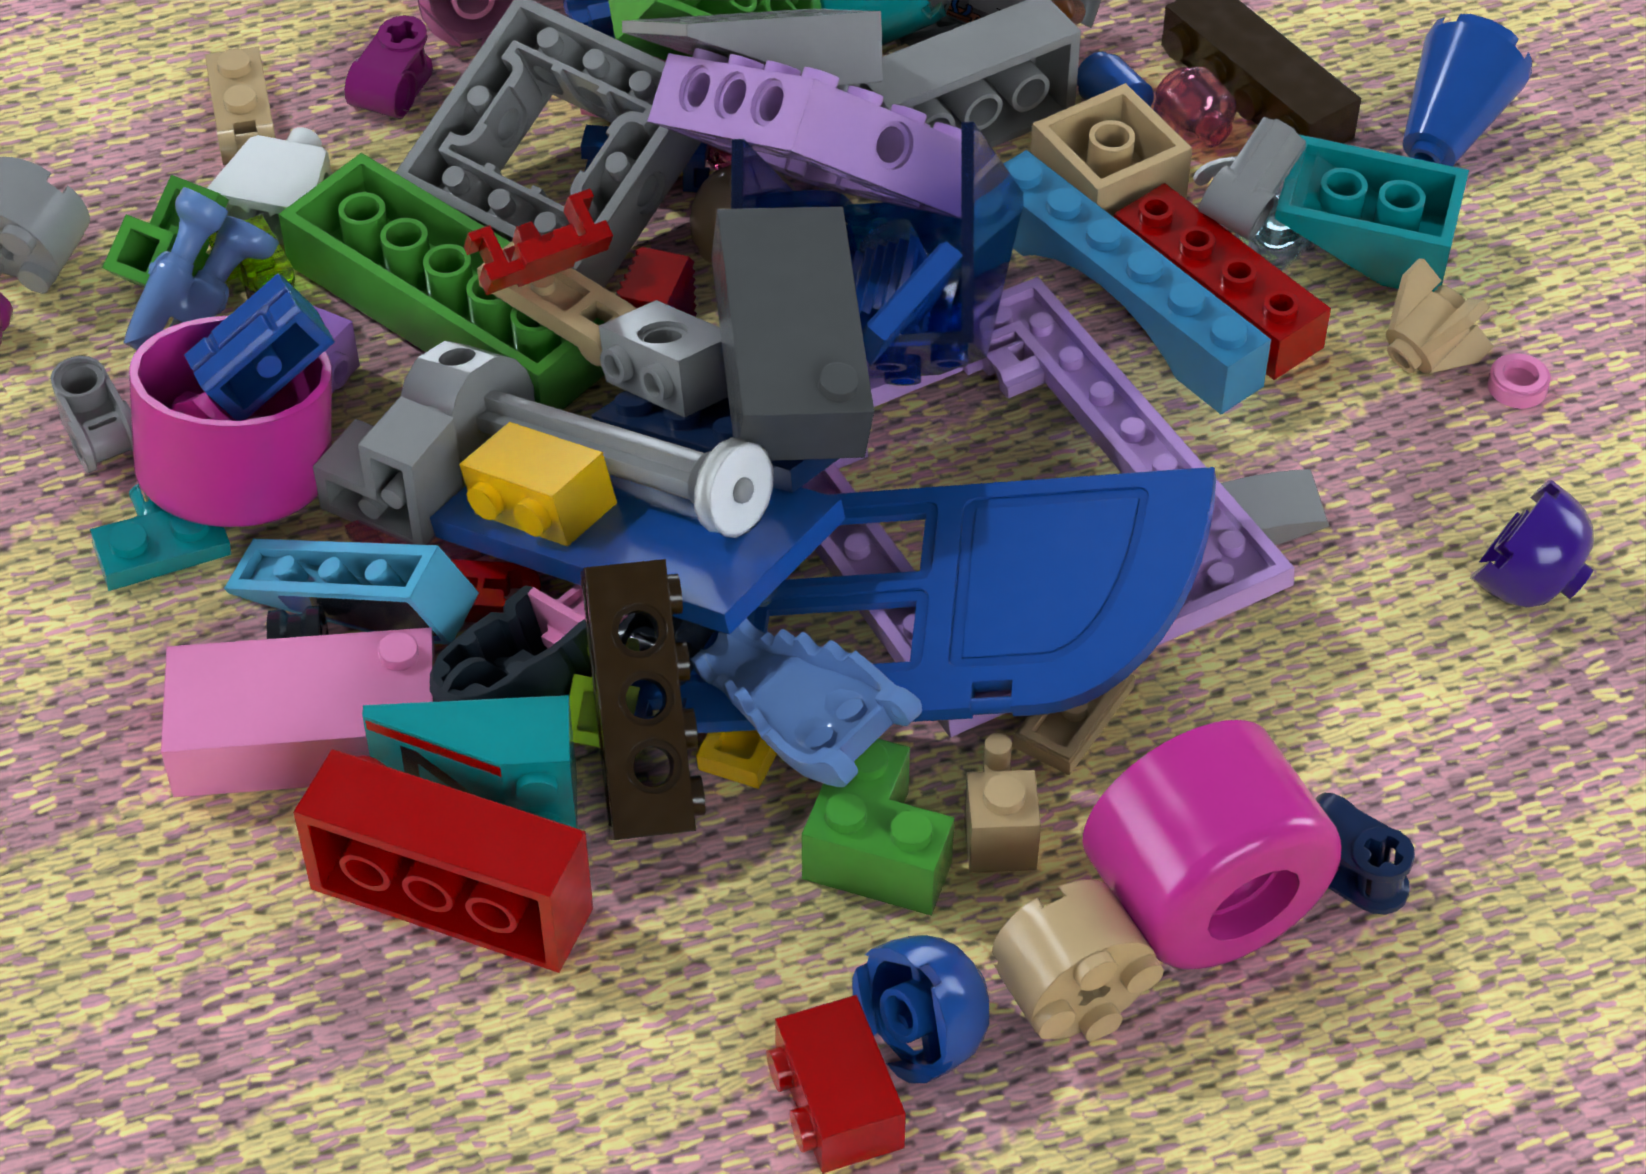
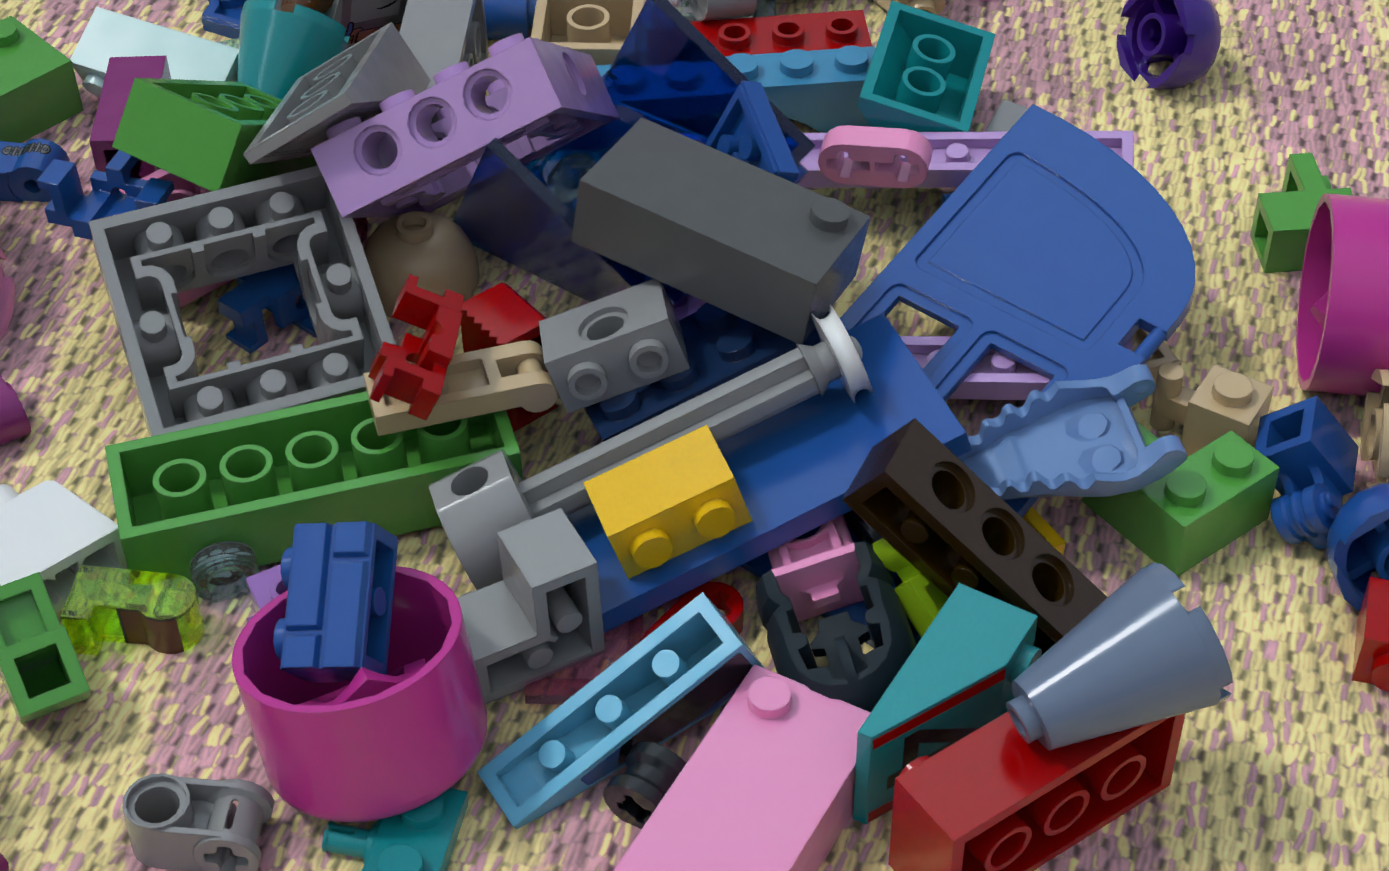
camera: 55 degrees left, 5 degrees down
(170, 285) = (117, 655): medium blue piece -> none
(331, 293) = (221, 570): none -> clear light blue tile
(510, 822) = (1123, 666): none -> sand blue cone
(986, 890) = (1314, 472): none -> blue brick
(1085, 408) = (875, 156): none -> bright pink beam
(1260, 398) = (924, 72): none -> teal slope
(1367, 774) = (1285, 217): none -> bright green brick

